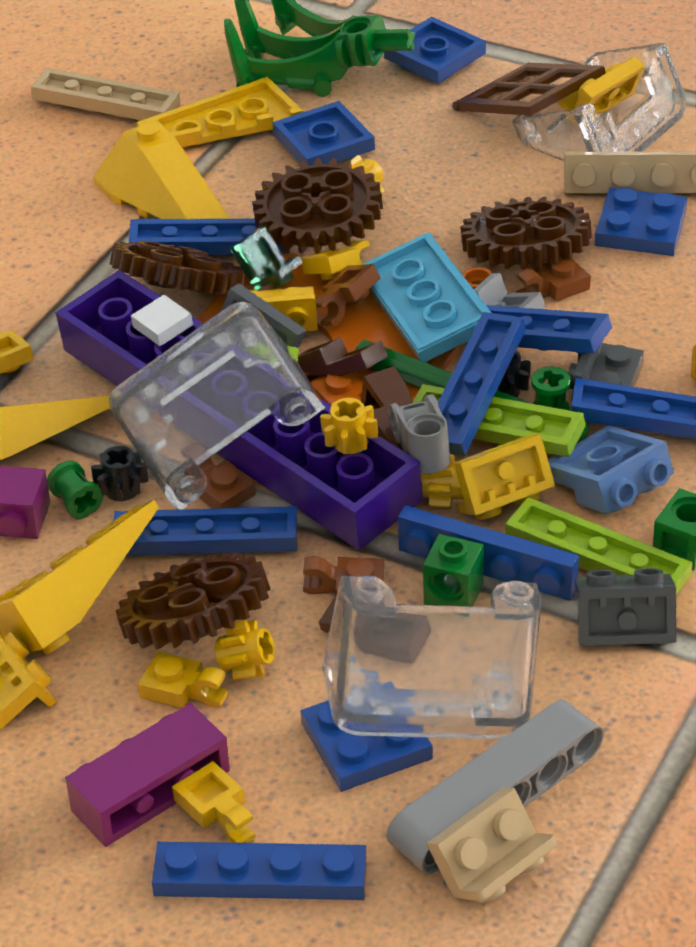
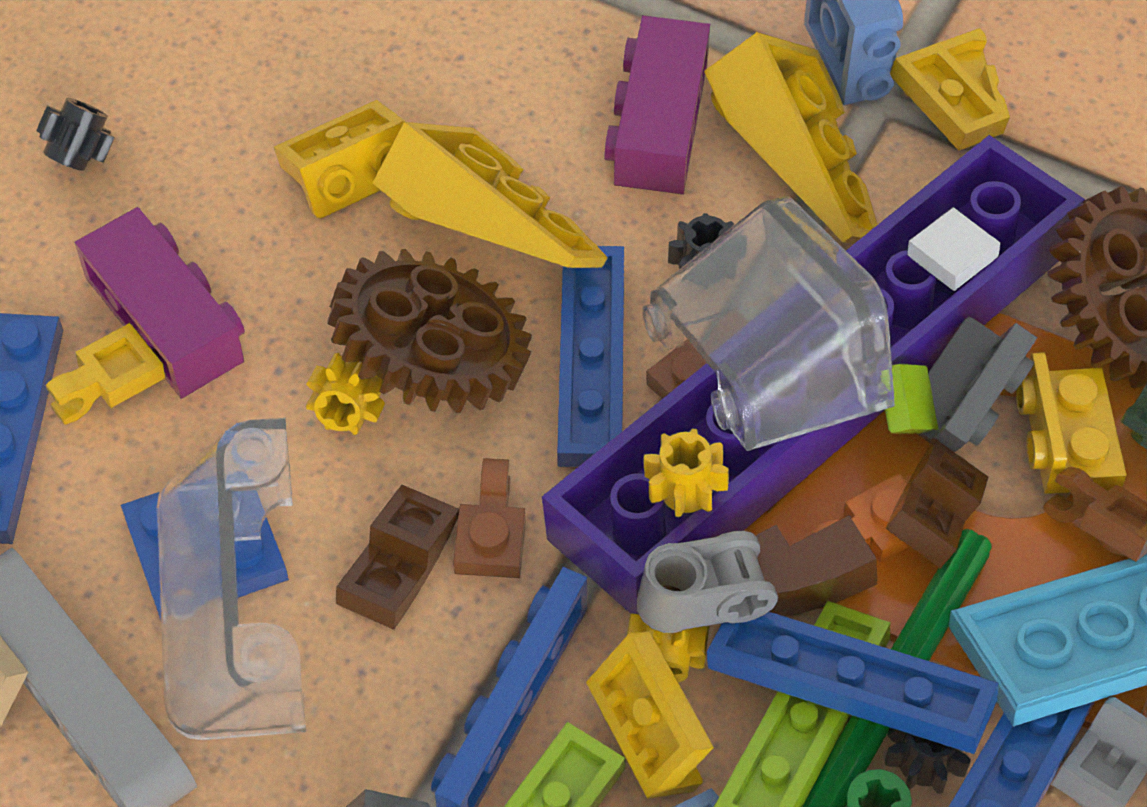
camera: 90 degrees right, 15 degrees up
(69, 483) = (659, 207): green bush -> none
(177, 679) = (310, 341): yellow plate -> none
(453, 572) = (463, 645): green brick -> none

